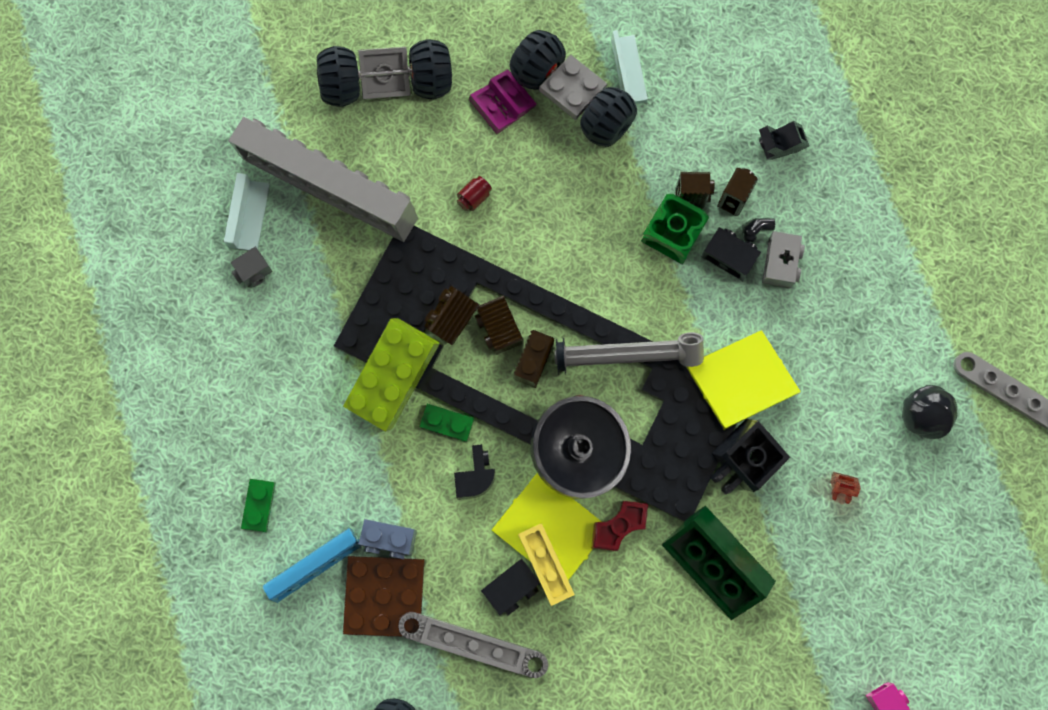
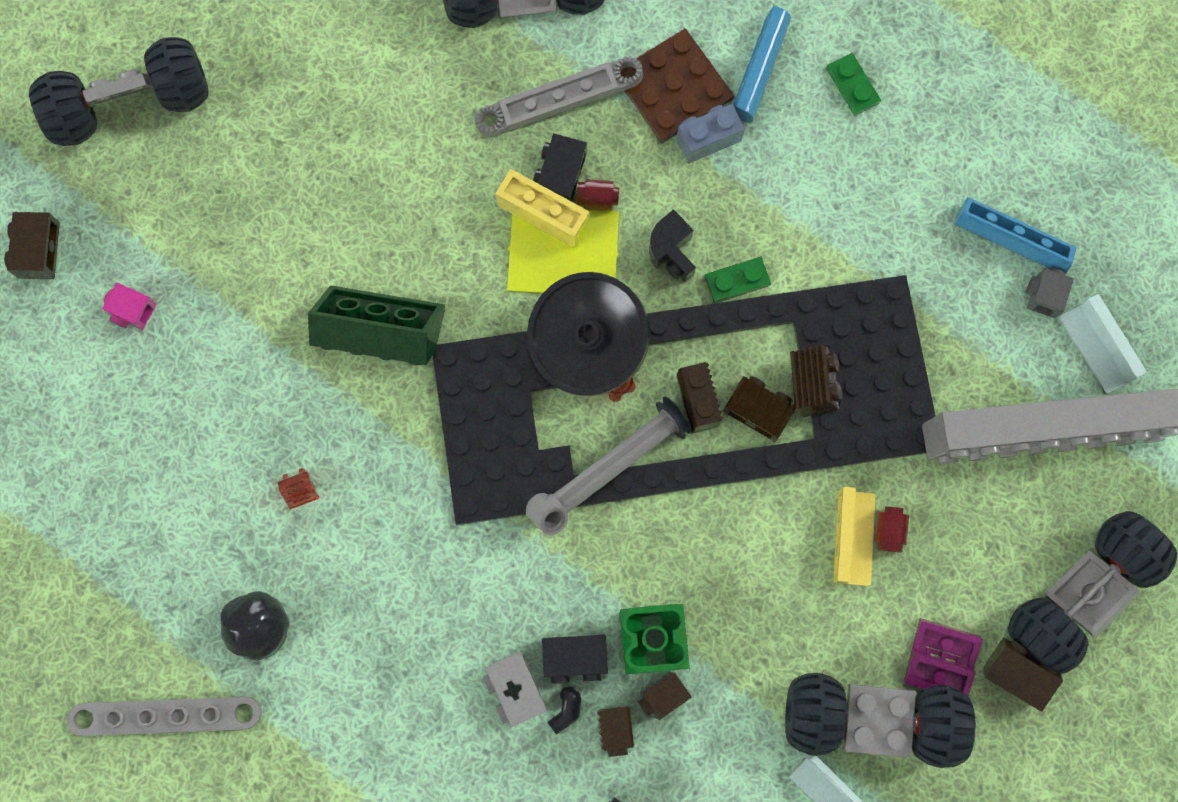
camera: 140 degrees right, 0 degrees up
(240, 320) = (1015, 235): none -> dark azure brick
(391, 374) = (827, 279): lime brick -> none
(466, 59) = (1021, 674): none -> dark brown brick
(499, 550) = (597, 194): none -> dark red brick
(500, 207) = (854, 537): none -> light yellow panel
(610, 533) = (501, 284): dark red tile -> none
(735, 458) = (414, 445): black hinge -> none
(743, 379) = (471, 526): neon yellow piece -> none

